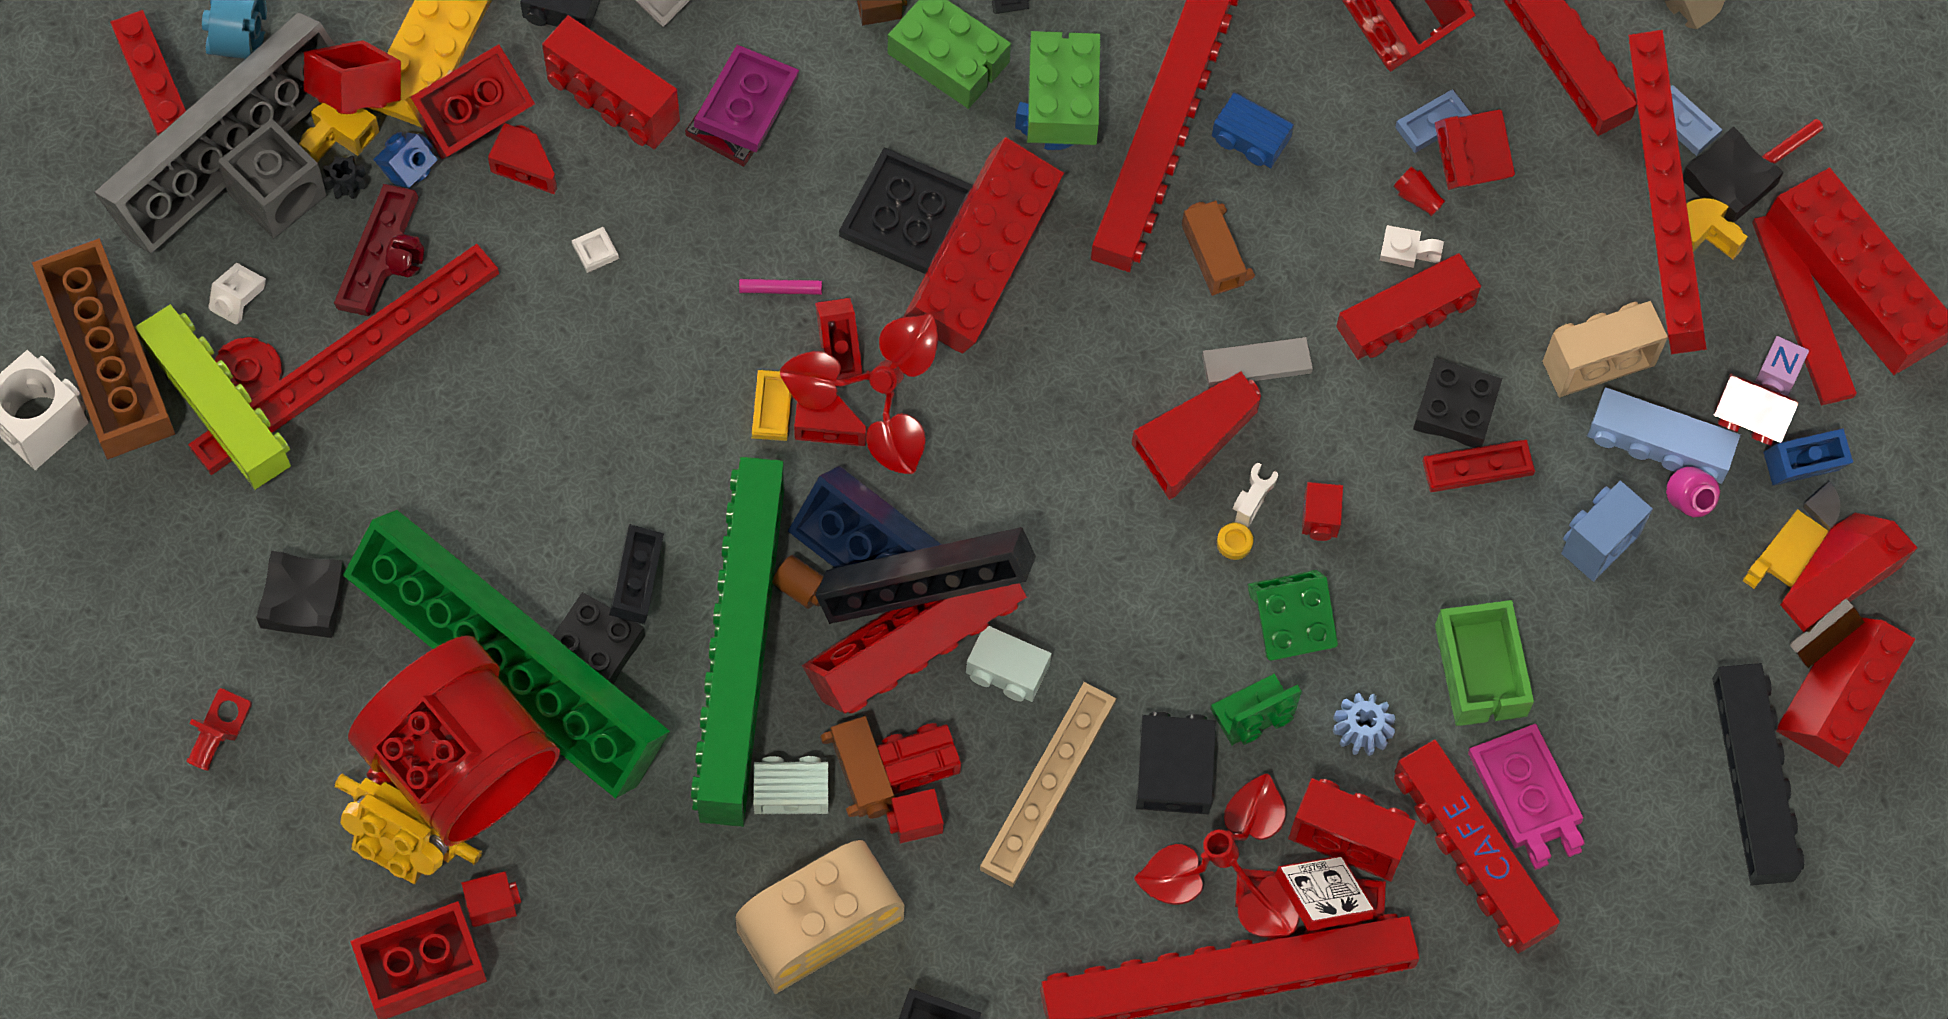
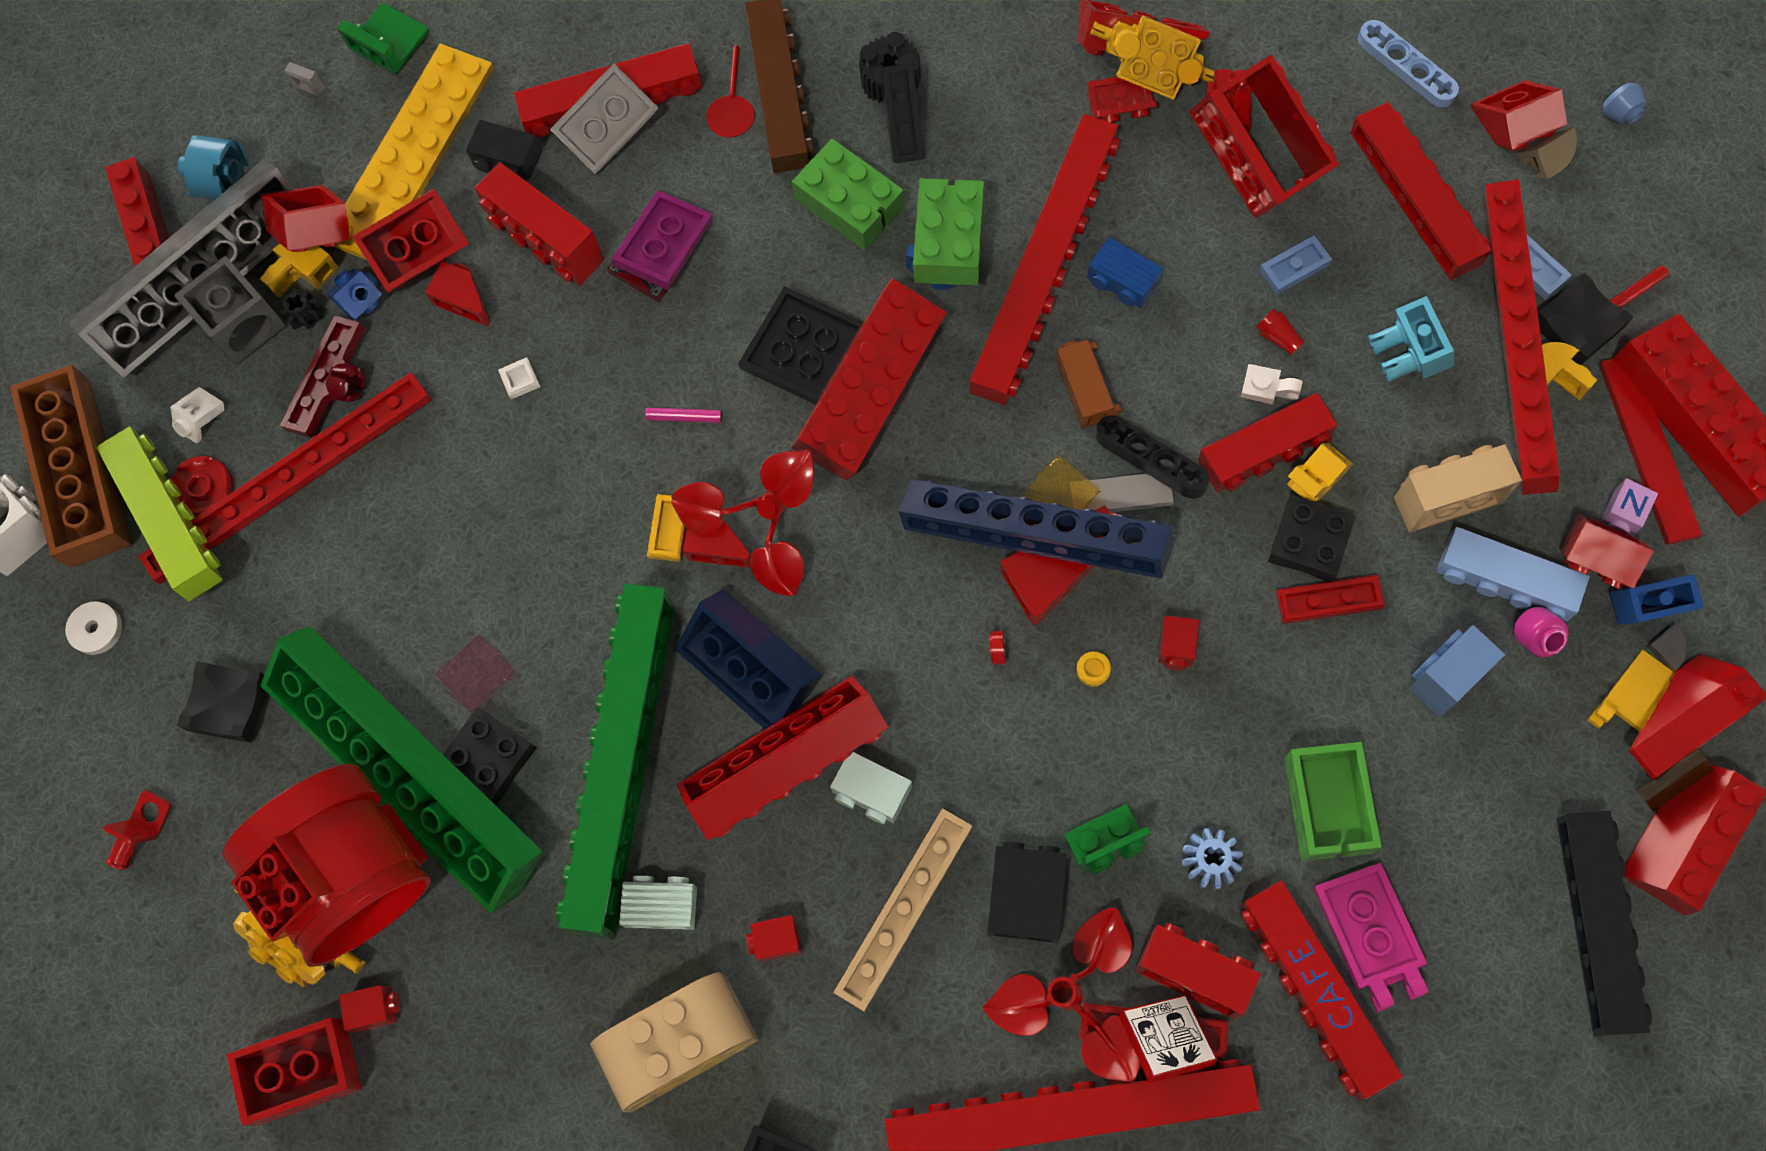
camera: 15 degrees right, 5 degrees up
(145, 537) = (103, 638): none -> white piece
(572, 561) = (475, 673): none -> clear pink piece
(636, 574) = (528, 691): black plate -> none
(798, 581) = (682, 701): dark orange brick -> none
(839, 335) = (732, 465): red slope -> none
(861, 768) = (726, 888): dark orange brick -> none
(919, 757) = (780, 879): red brick -> none
(926, 575) = (793, 706): black brick -> none
(1133, 520) = (997, 647): none -> red tile
(1169, 394) = (1148, 557): none -> dark blue brick
(1193, 361) = (1062, 485): none -> clear yellow piece
(1249, 503) = (1108, 632): white plate -> none
(1284, 325) = (1155, 452): none -> black beam
(1294, 614) = (1148, 743): green bracket -> none
(1463, 336) = (1319, 473): none -> yellow brick
(1474, 149) = (1334, 292): red bracket -> none
(1572, 200) = (1425, 338): none -> medium azure brick

